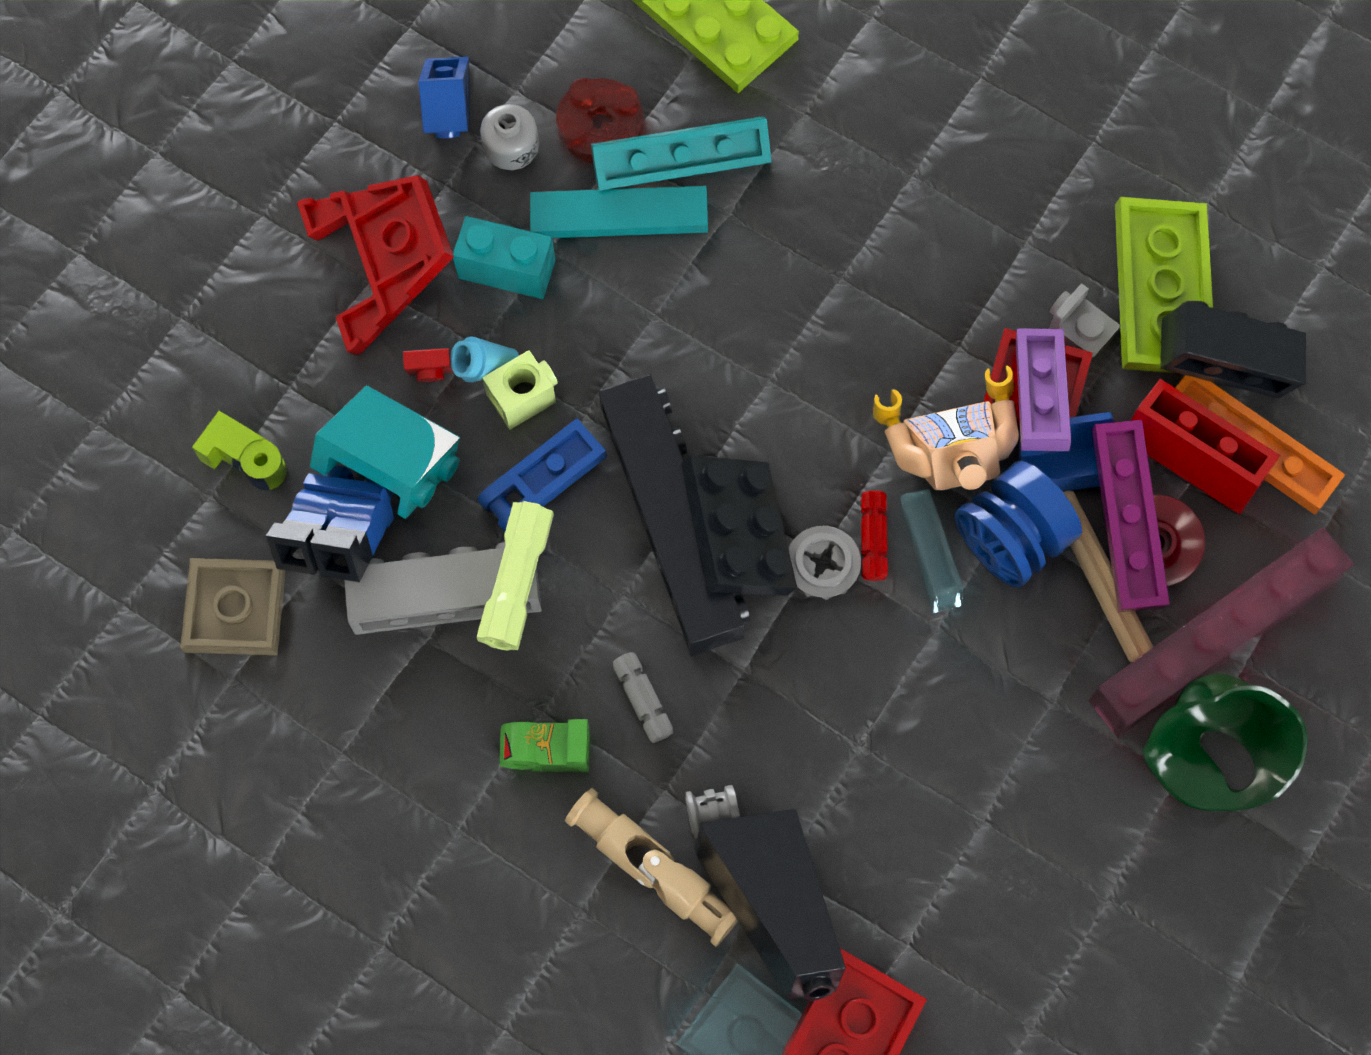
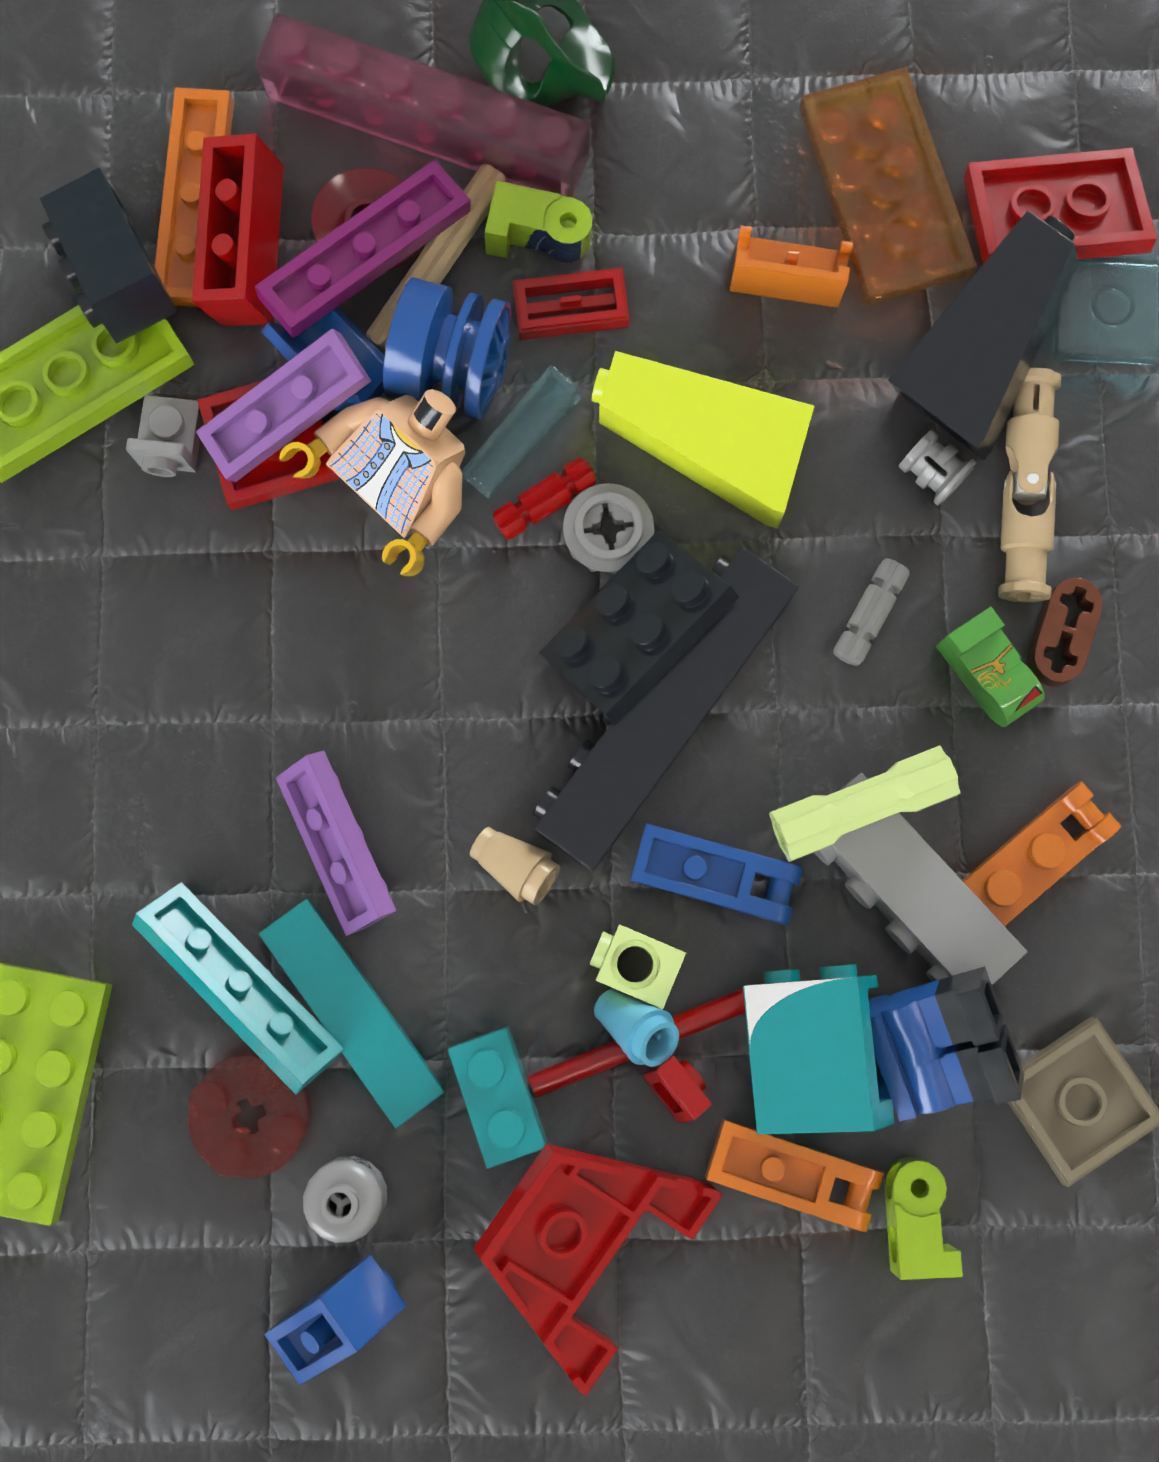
camera: 125 degrees left, 10 degrees up
(323, 398) = (792, 1174): none -> orange plate
(401, 689) = (1040, 854): none -> orange plate
(467, 390) = (611, 1054): none -> red bar
(544, 812) = (1077, 636): none -> copper beam
(638, 358) = (516, 865): none -> tan cone
(730, 262) = (335, 843): none -> medium lavender plate
(840, 673) = (708, 429): none -> neon yellow slope
(933, 814) = (790, 270): none -> orange hinge
(951, 929) = (887, 185): none -> clear orange plate
(991, 682) = (571, 304): none -> red tile
(1072, 669) = (537, 222): none -> lime leg

